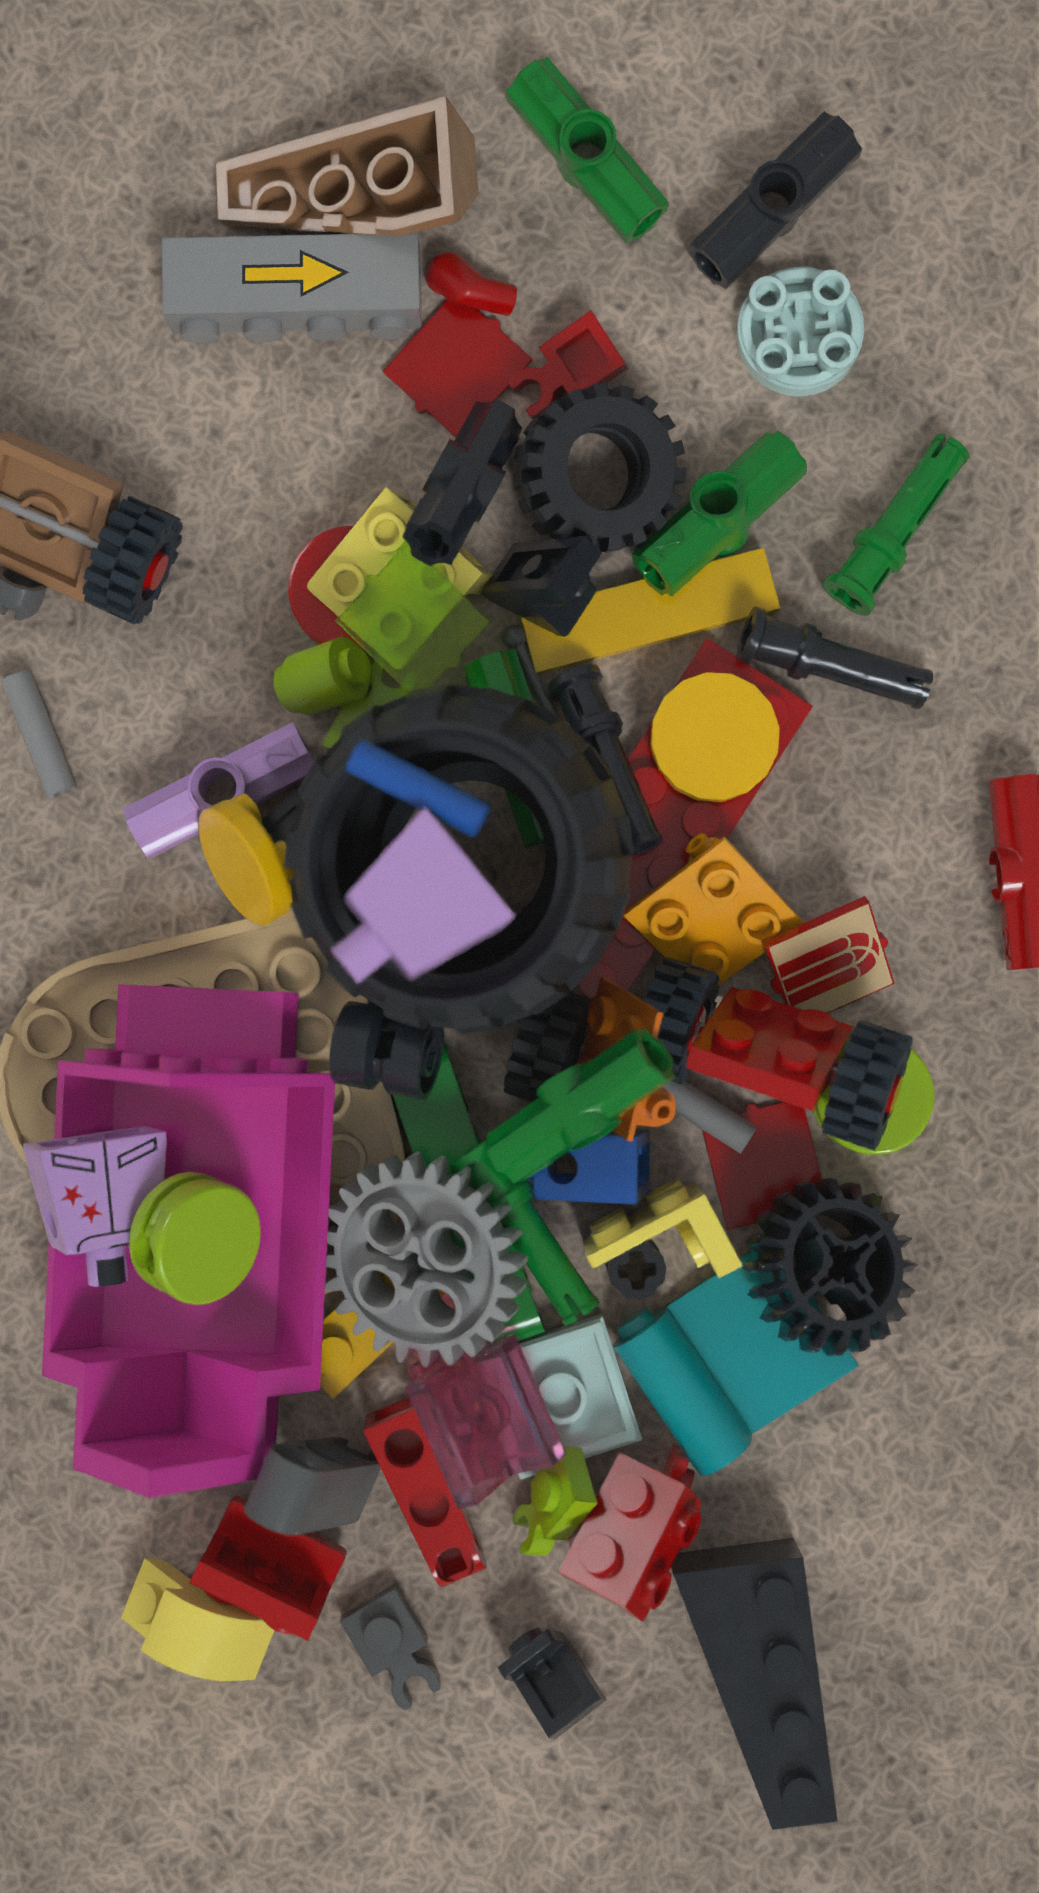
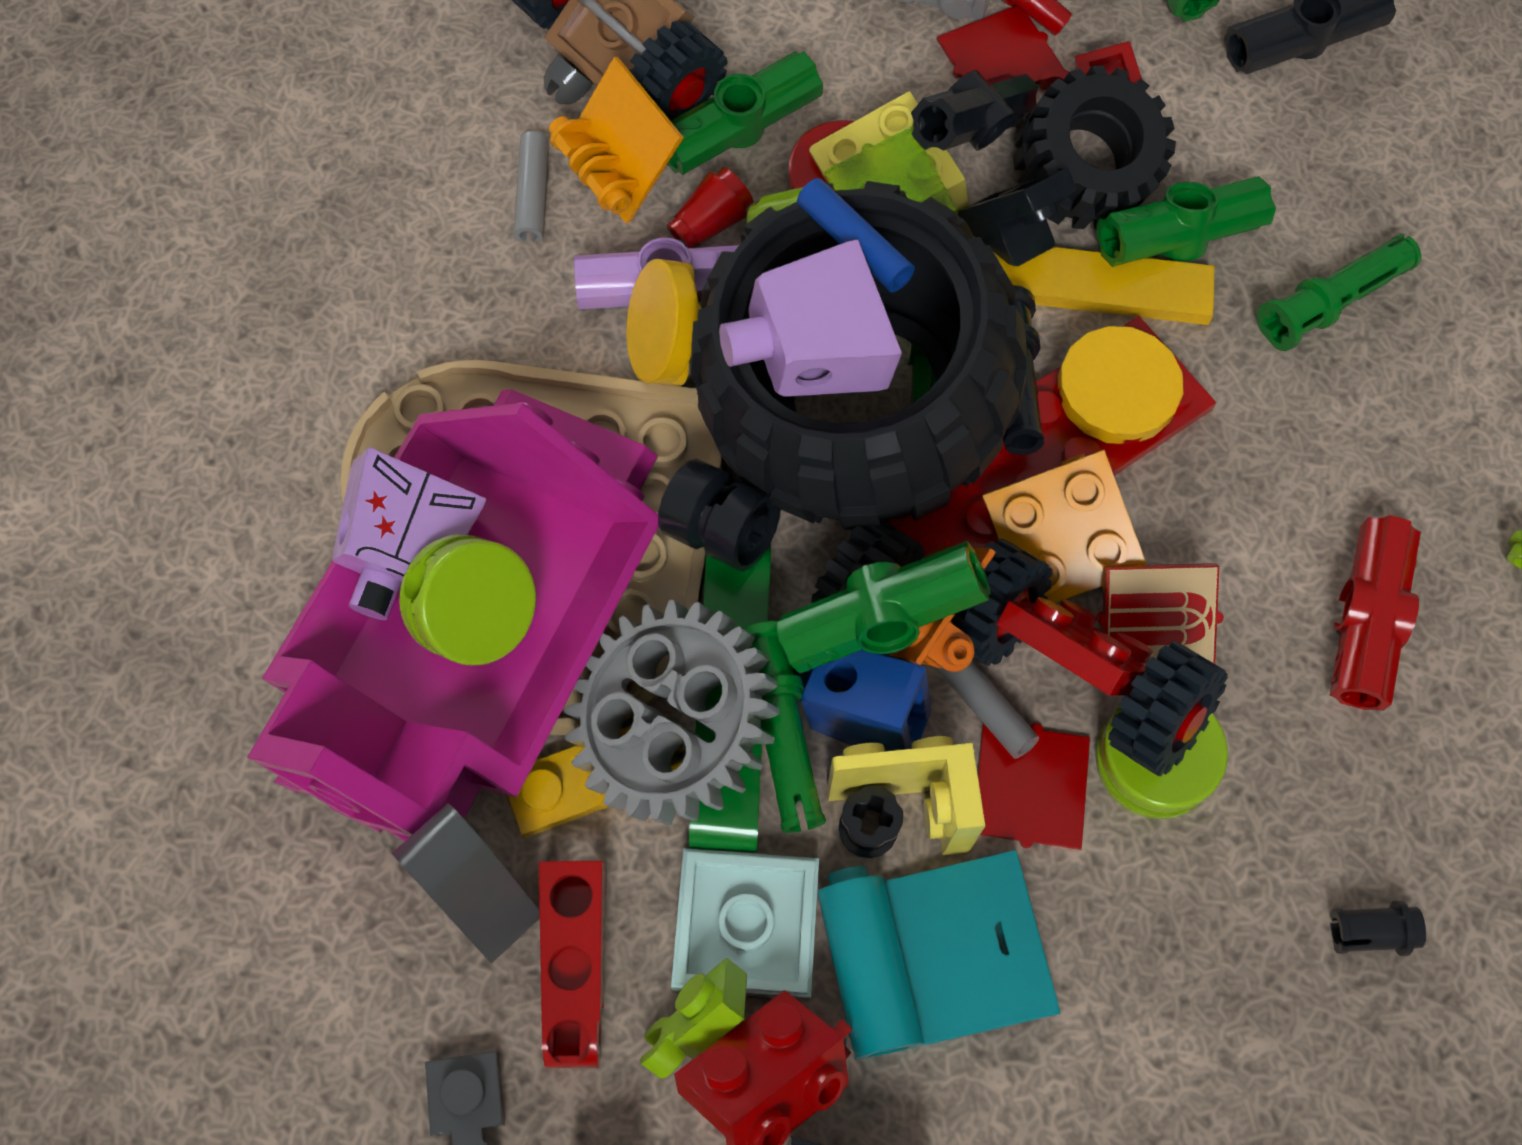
camera: 15 degrees right, 20 degrees down
(109, 658) = (617, 142): none -> light orange hinge
(191, 1629) = (286, 999): light yellow brick -> none
(232, 691) = (711, 208): none -> red cone
(237, 528) = (743, 109): none -> green piece
(269, 1572) = (383, 969): red bracket -> none
(484, 1419) = (664, 894): clear pink bracket -> none
(800, 330) = (1300, 124): light aqua tile -> none
(806, 652) = (1225, 354): black pin -> none
(862, 1277) = (1058, 933): black gear -> none

